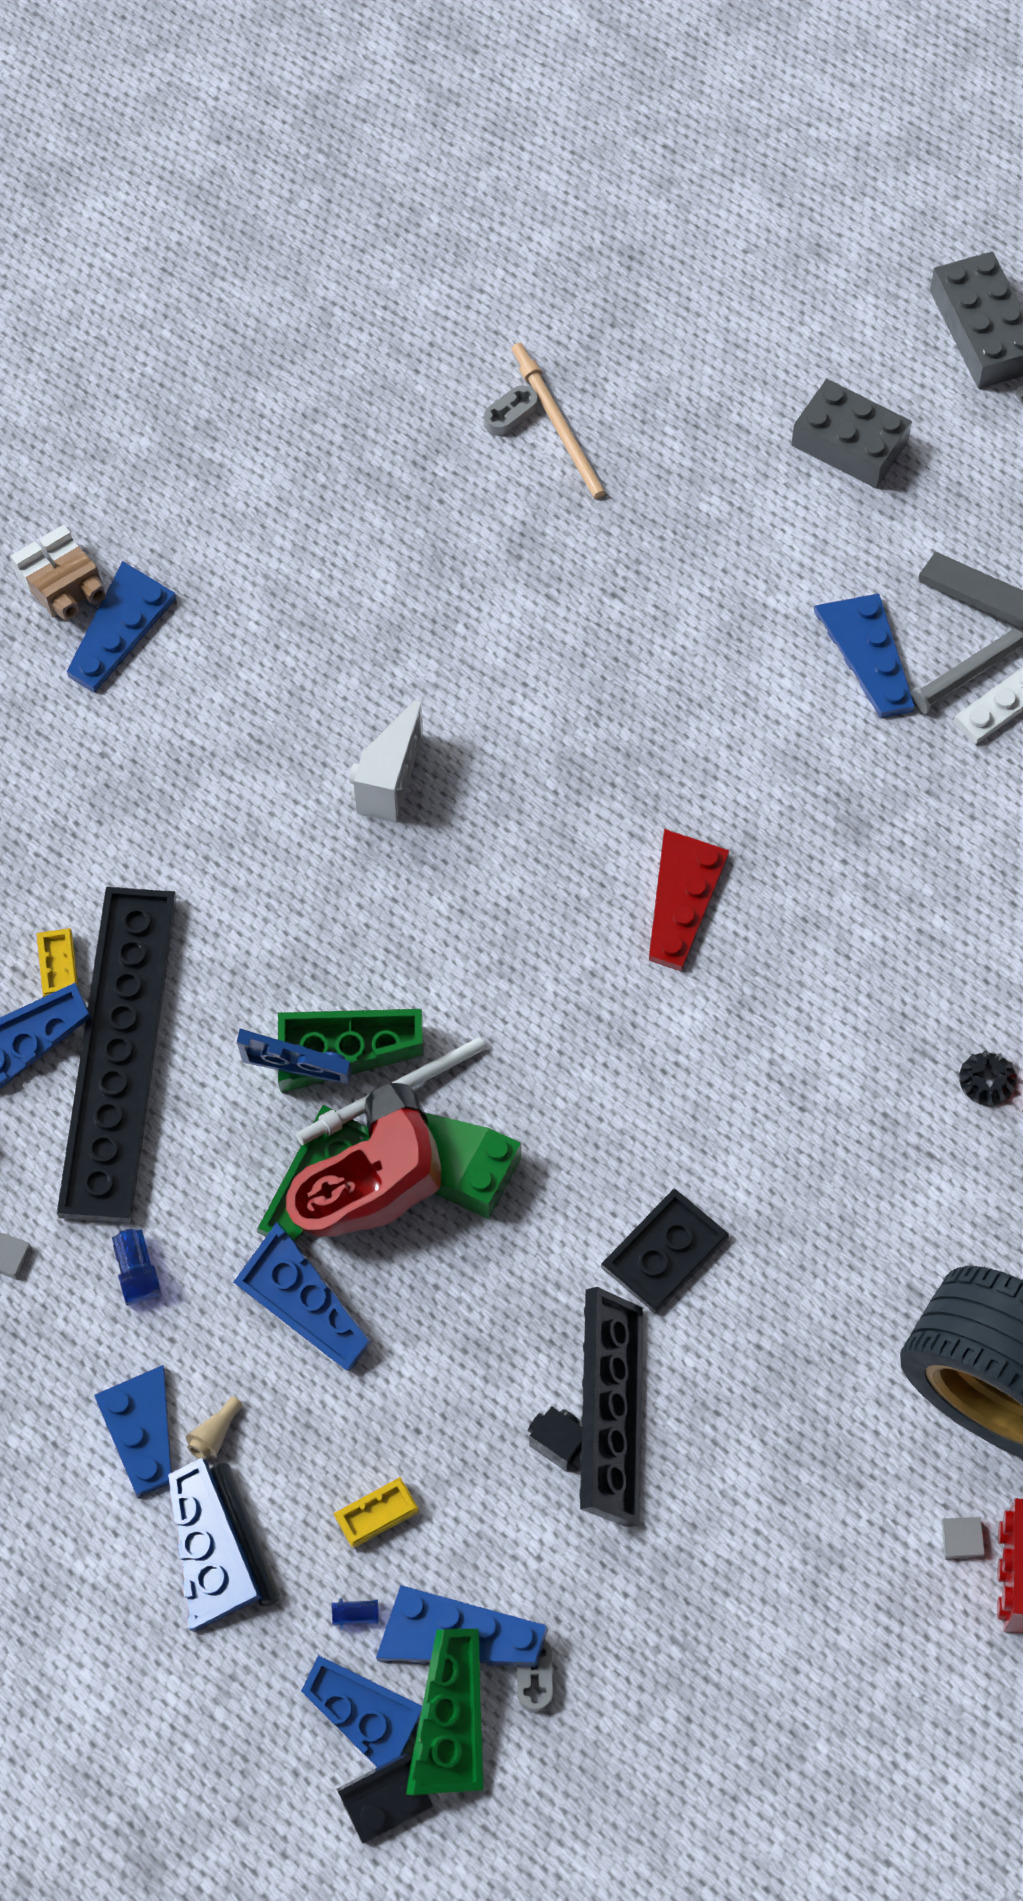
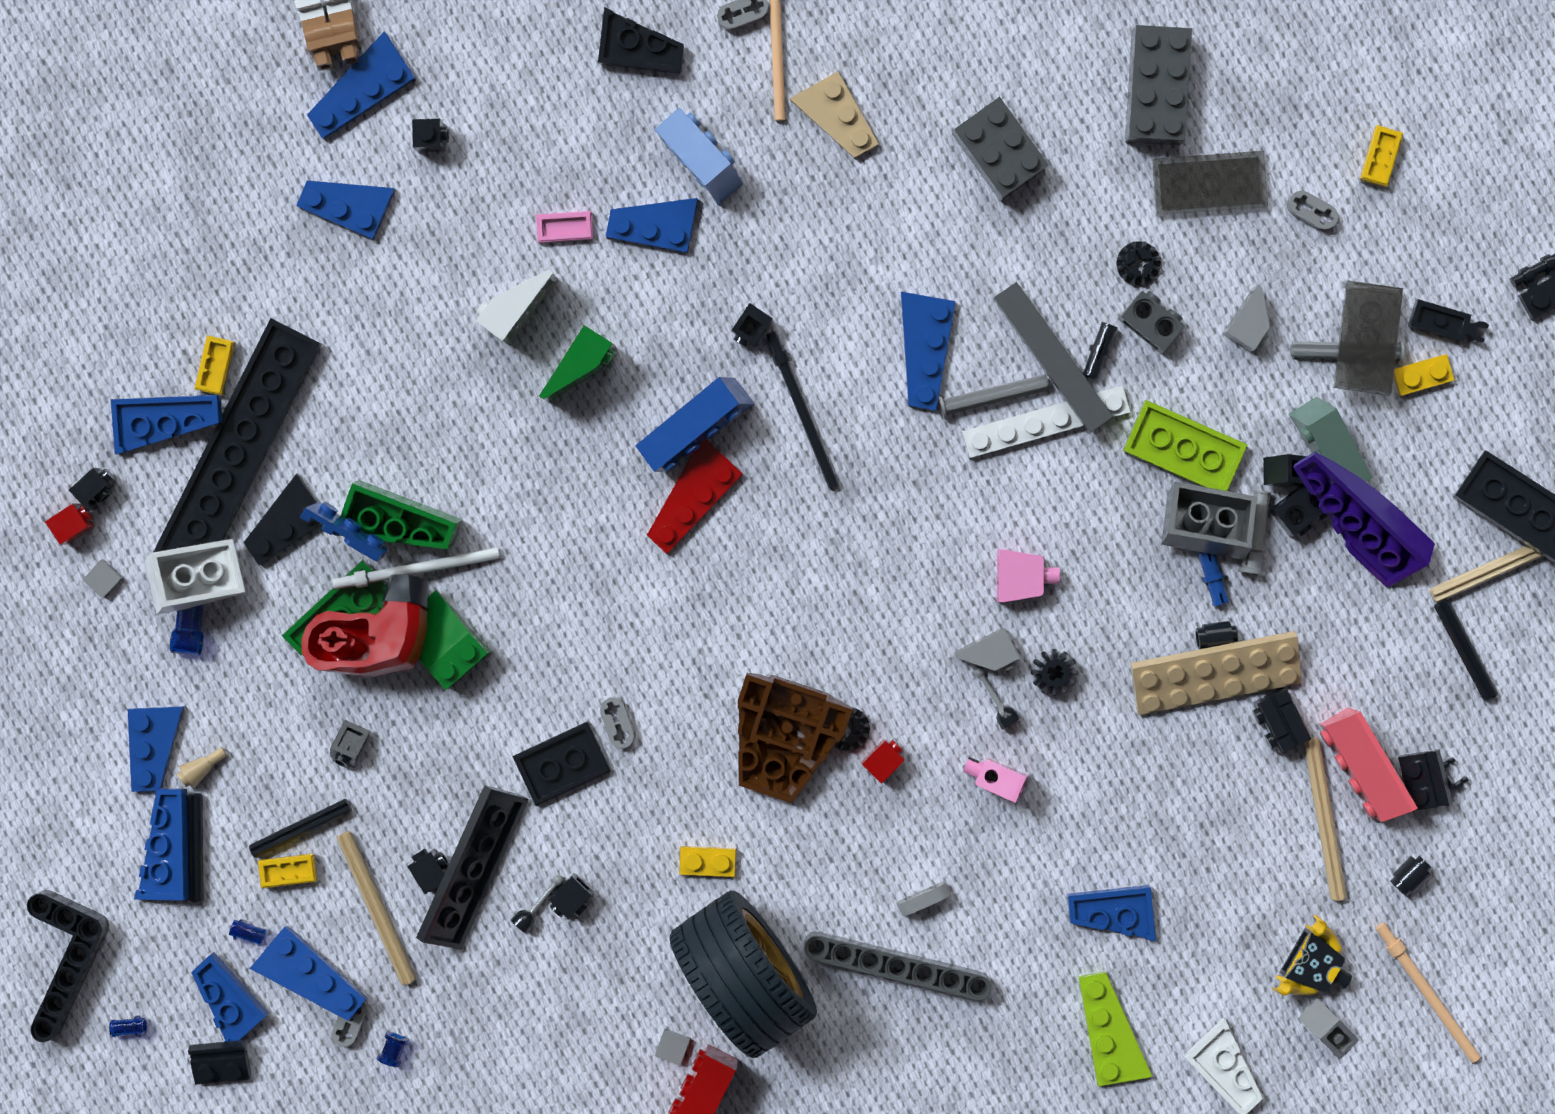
camera: 20 degrees right, 25 degrees up
(120, 1193) = (193, 575): none -> white slope
(134, 1743) = (71, 960): none -> black beam
(148, 746) = (348, 205): none -> blue wing
(210, 1105) = (282, 522): none -> black wing
(216, 638) = (429, 135): none -> black brick
(243, 1803) = (128, 1027): none -> clear blue pin
(298, 1295) = (293, 698): blue wing -> none
(370, 1456) = (300, 828): none -> black axle
(392, 1329) = (348, 744): none -> bracket
(407, 481) = (637, 47): none -> black wing
(408, 679) = (564, 227): none -> bright pink tile
(450, 1725) = (278, 1035): green wing -> none
(492, 795) = (582, 360): none -> green slope
(509, 641) = (655, 225): none -> blue wing
(510, 1517) = (376, 908): none -> tan axle
(531, 548) = (699, 154): none -> medium blue wedge
(607, 1685) = (392, 1049): none -> clear blue bush
(650, 811) = (694, 423): none -> blue wedge
(657, 465) = (837, 113): none -> tan wing
(666, 695) = (756, 317): none -> black brick
(704, 1453) = (524, 918): none -> hinge
(705, 1181) = (610, 724): none -> light grey beam
(716, 720) = (781, 359): none -> black bar
(750, 1399) = (570, 897): none -> black brick
(895, 1294) = (707, 861): none -> yellow plate
(920, 1103) = (785, 733): none -> reddish brown wedge

